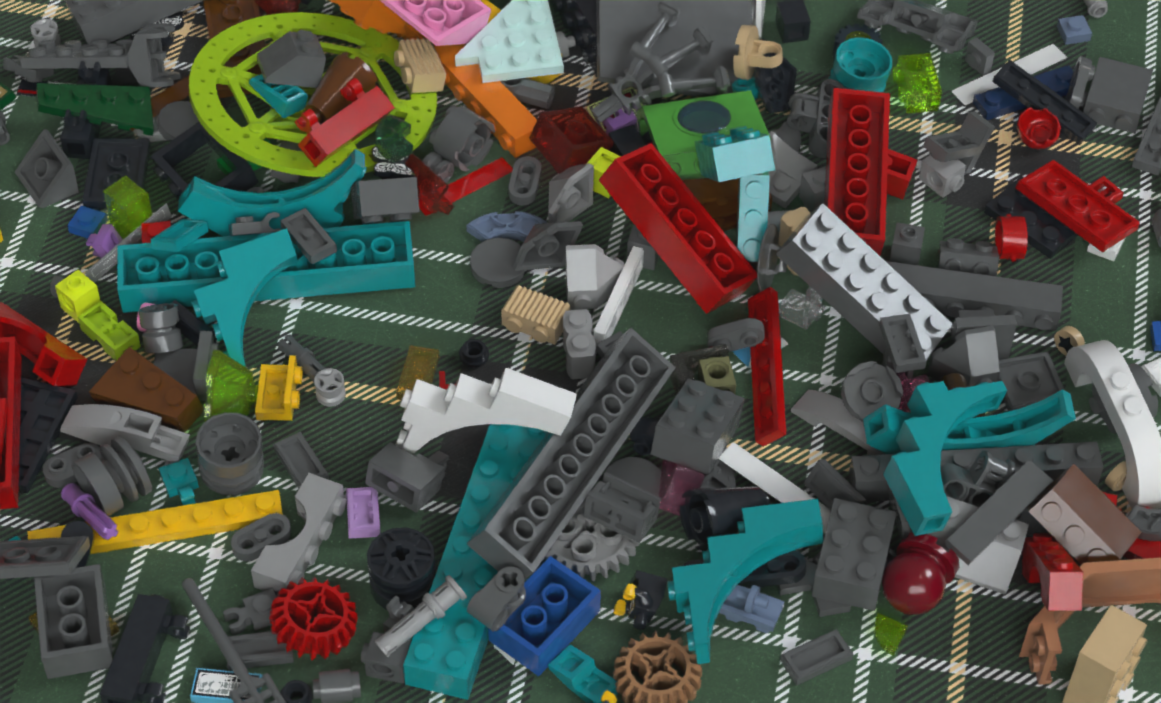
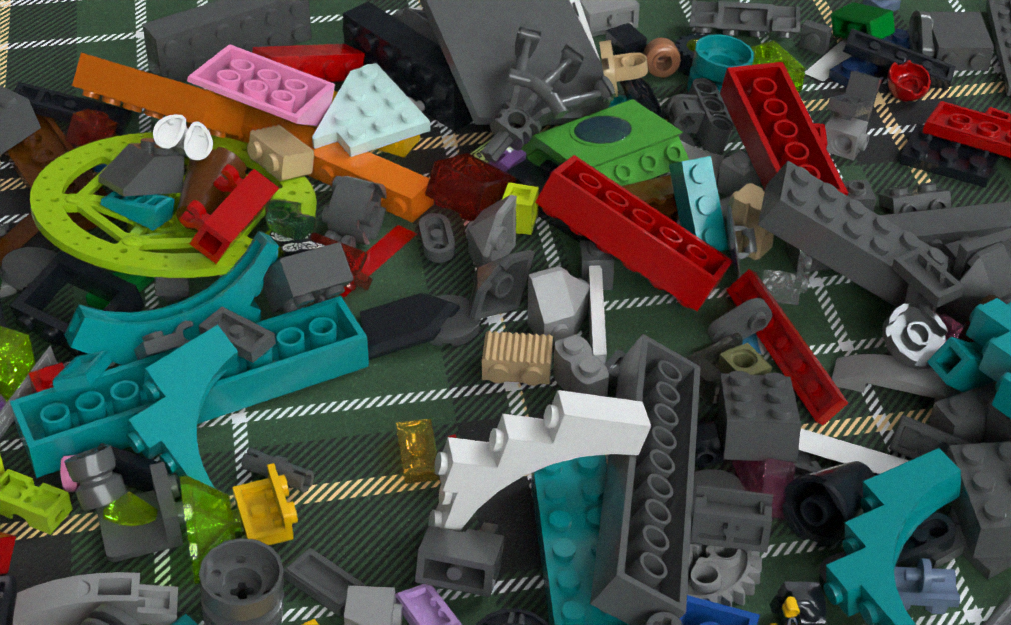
camera: 20 degrees left, 10 degrees down
(144, 387) = (107, 544): reddish brown wedge -> none
(176, 363) = (130, 511): none -> clear neon green tile
(325, 382) = (323, 490): light grey wheel -> none
(336, 38) = (192, 142): none -> white piece
(458, 256) = (405, 323): none -> black tile
(474, 353) = (468, 413): black plate -> none
(506, 226) = (449, 281): sand blue tile -> none
(531, 91) = (407, 156): dark grey piece -> none
(735, 154) = (665, 144): brick -> none
(818, 43) = (662, 57): none -> nougat head
(1011, 237) = (948, 170): red piece -> none
(1032, 52) = (864, 18): none -> green brick

